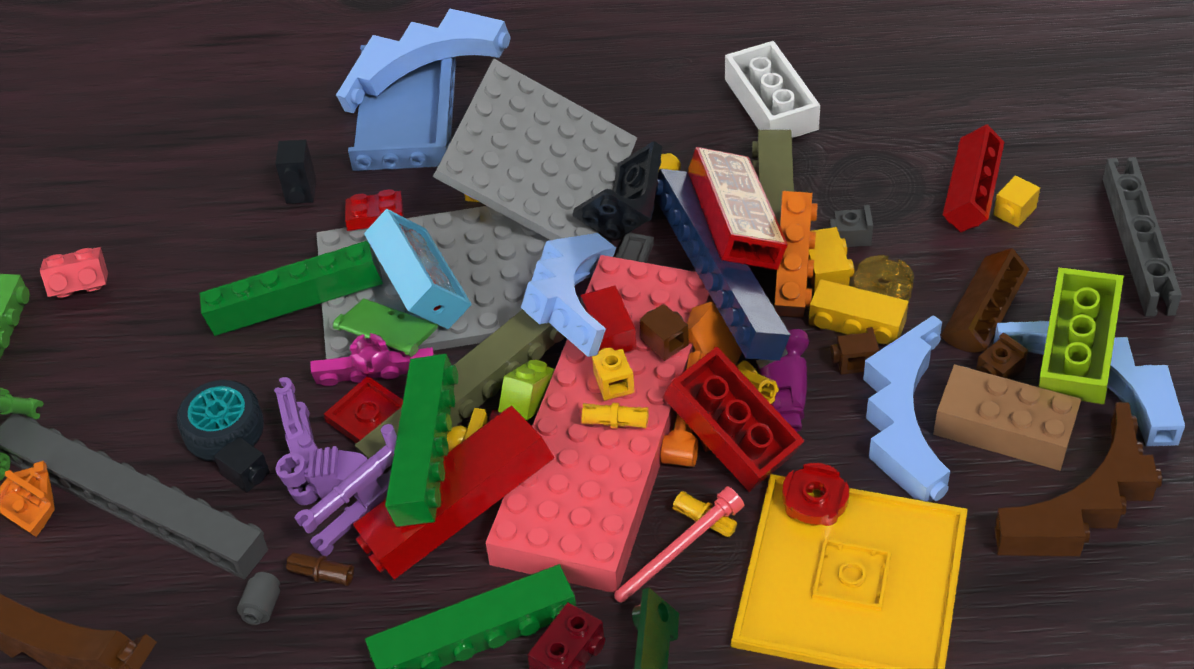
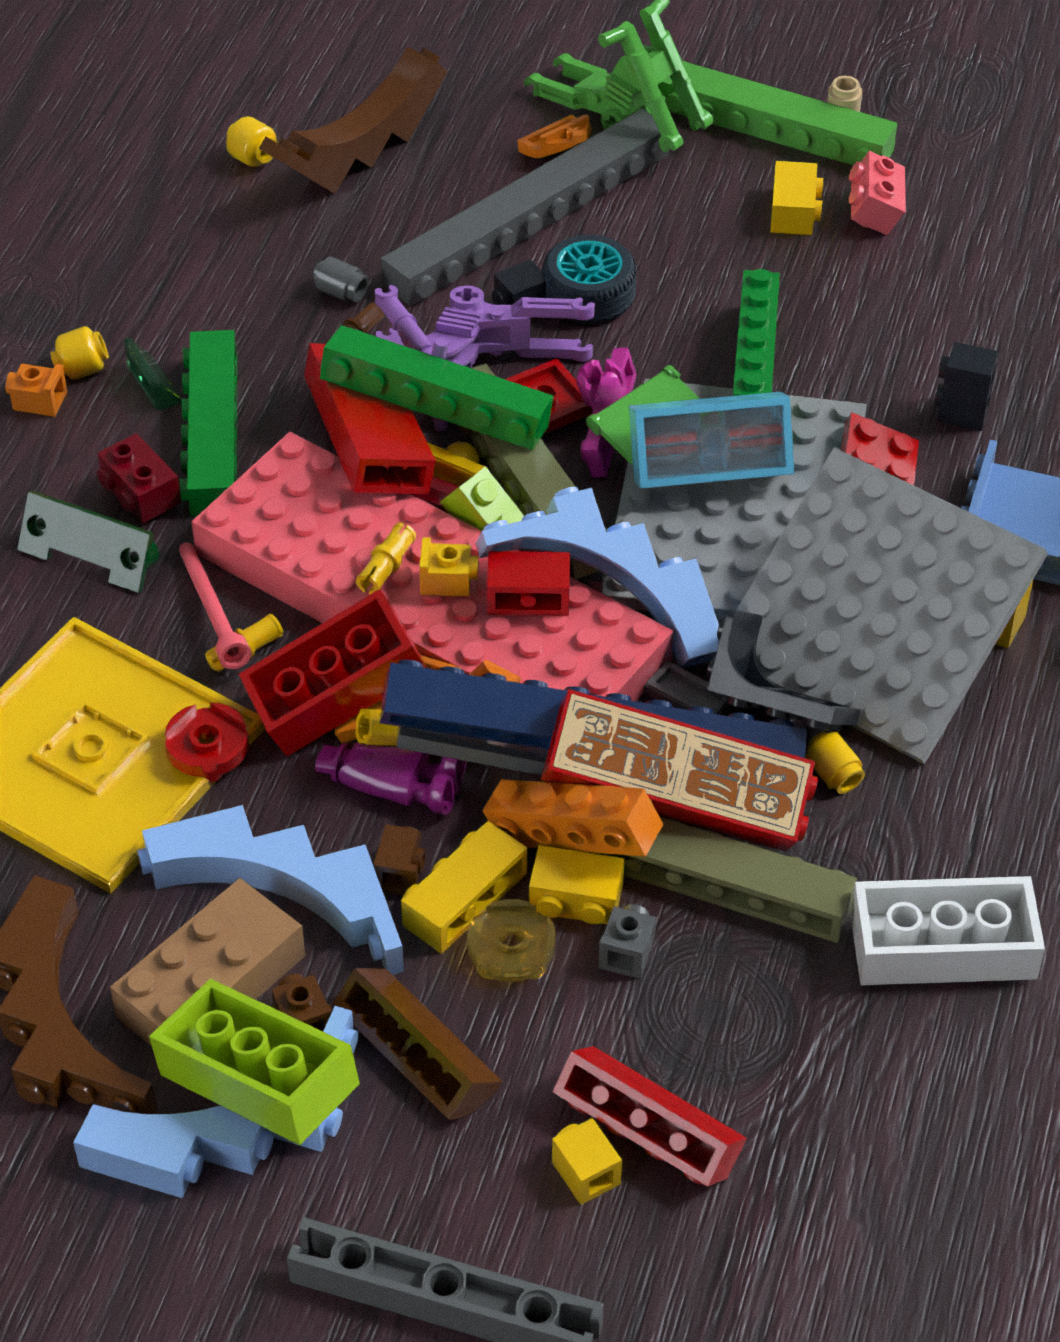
camera: 105 degrees right, 0 degrees up
(83, 324) = (795, 198): none -> yellow brick
(664, 331) = (486, 629): reddish brown brick -> none

